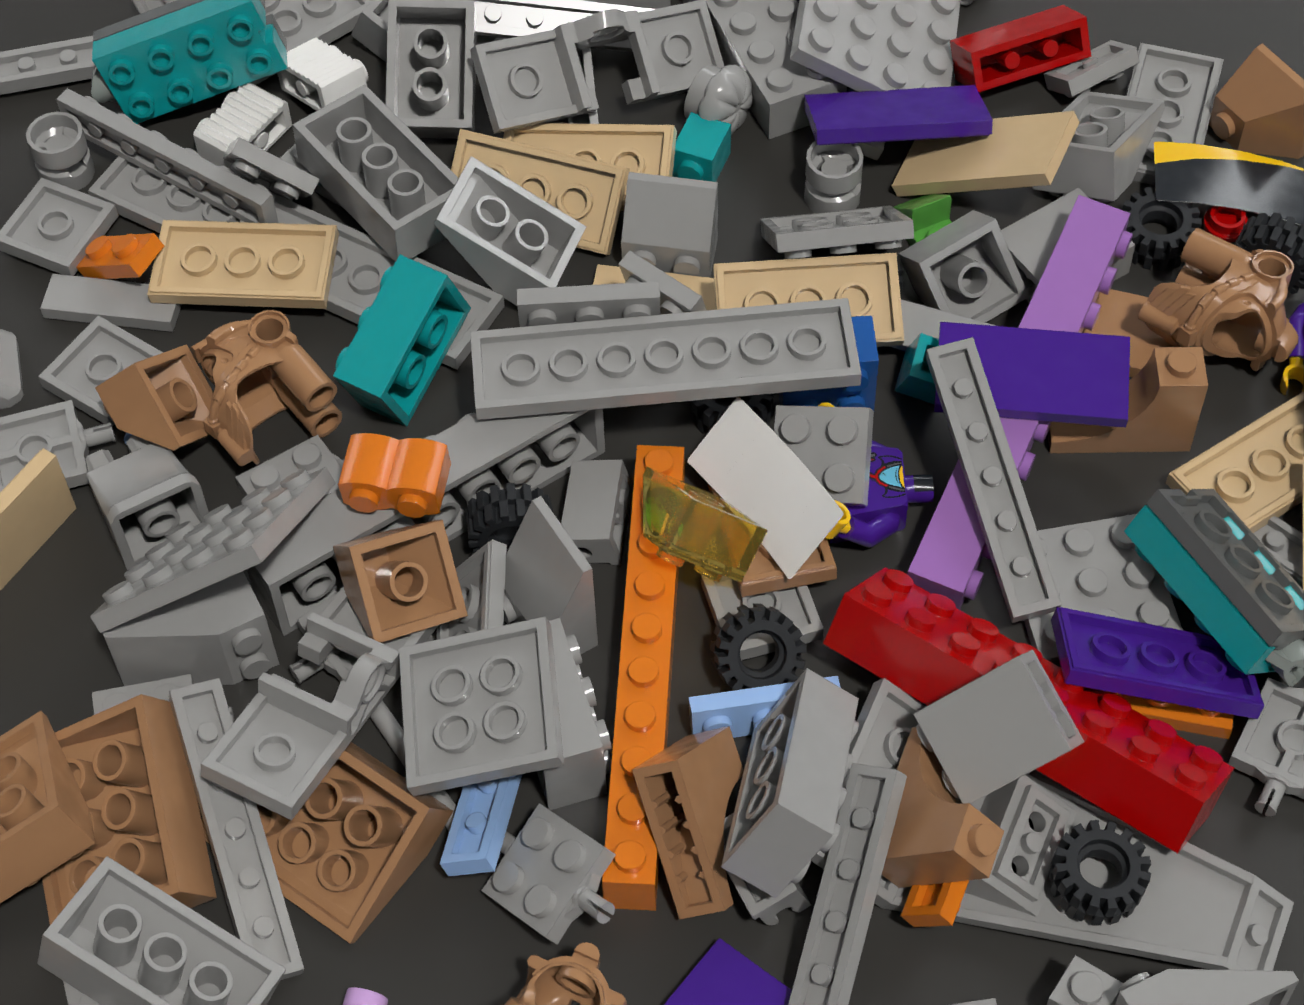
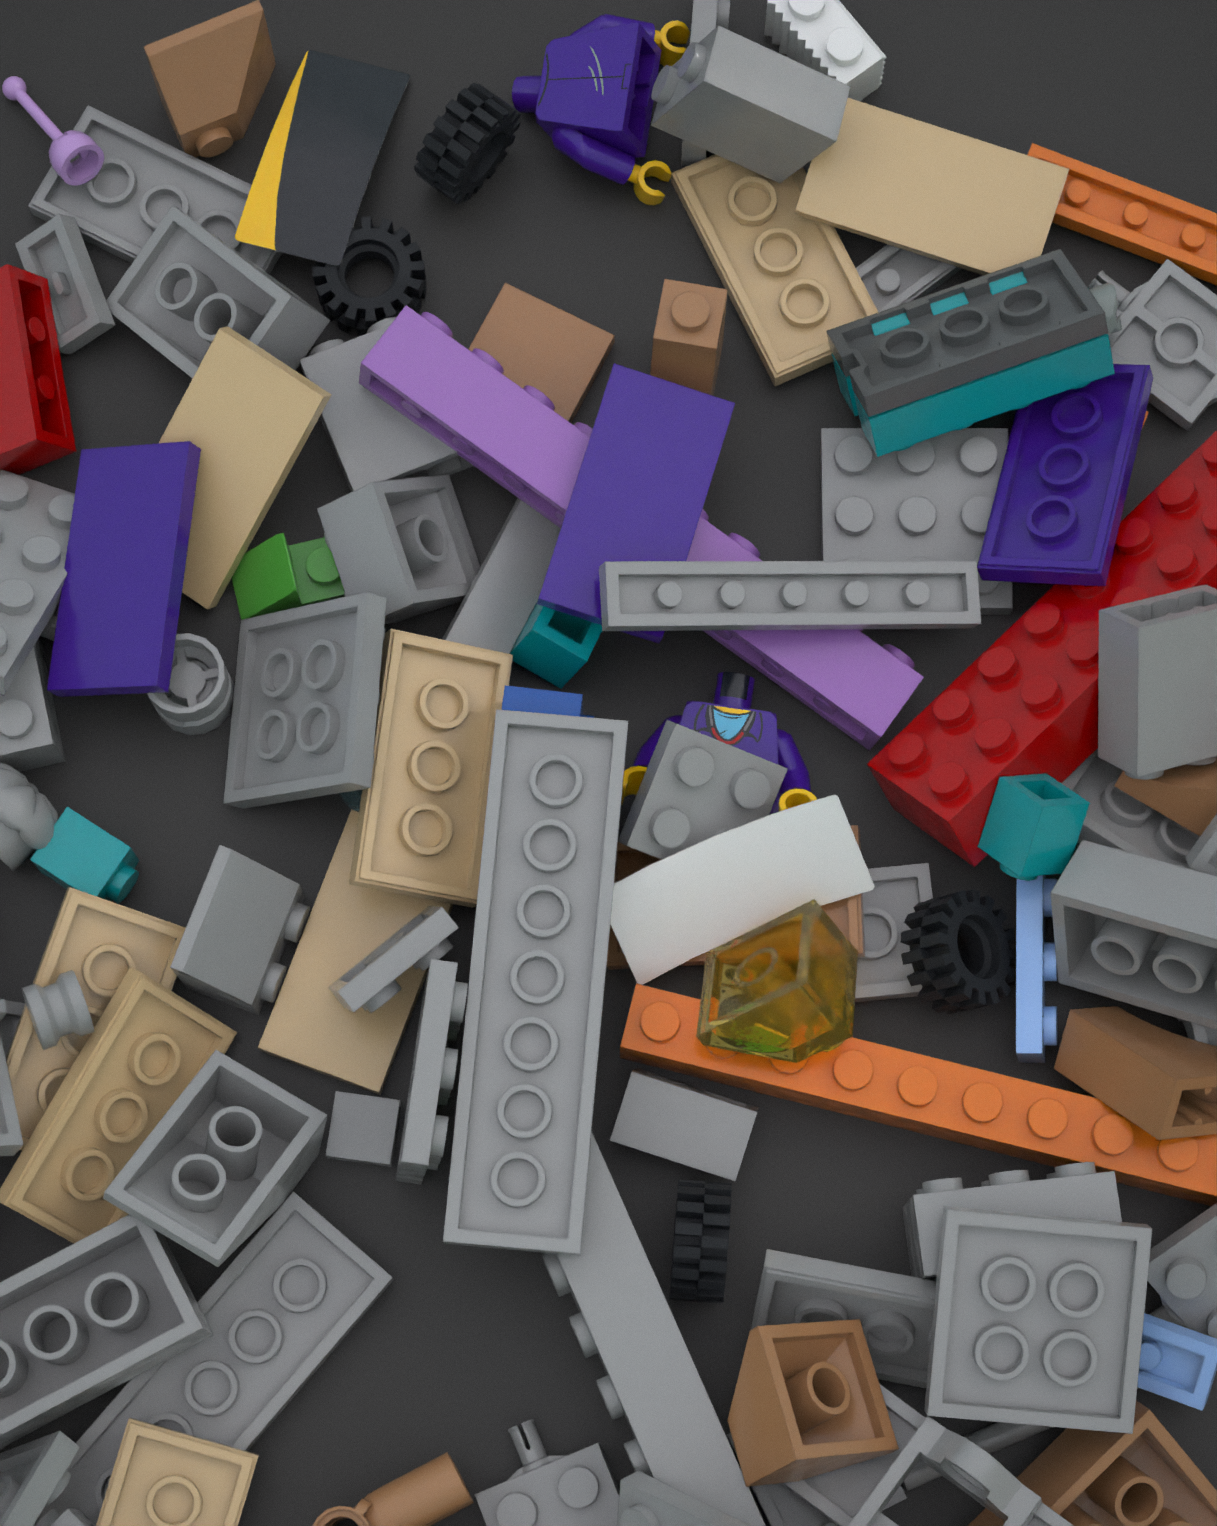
camera: 80 degrees left, 20 degrees up
(394, 474) = (666, 1383): orange brick -> none
(402, 339) = (381, 1350): teal brick -> none
(549, 577) = (838, 1205): light grey slope -> none
(590, 130) = (58, 1009): none -> light grey wheel
(861, 659) = (1033, 825): none -> teal brick
(1188, 46) = (64, 146): none -> lavender hinge
(1224, 222) = (384, 192): red plate -> none
(1225, 302) = (556, 204): medium nougat helmet -> none

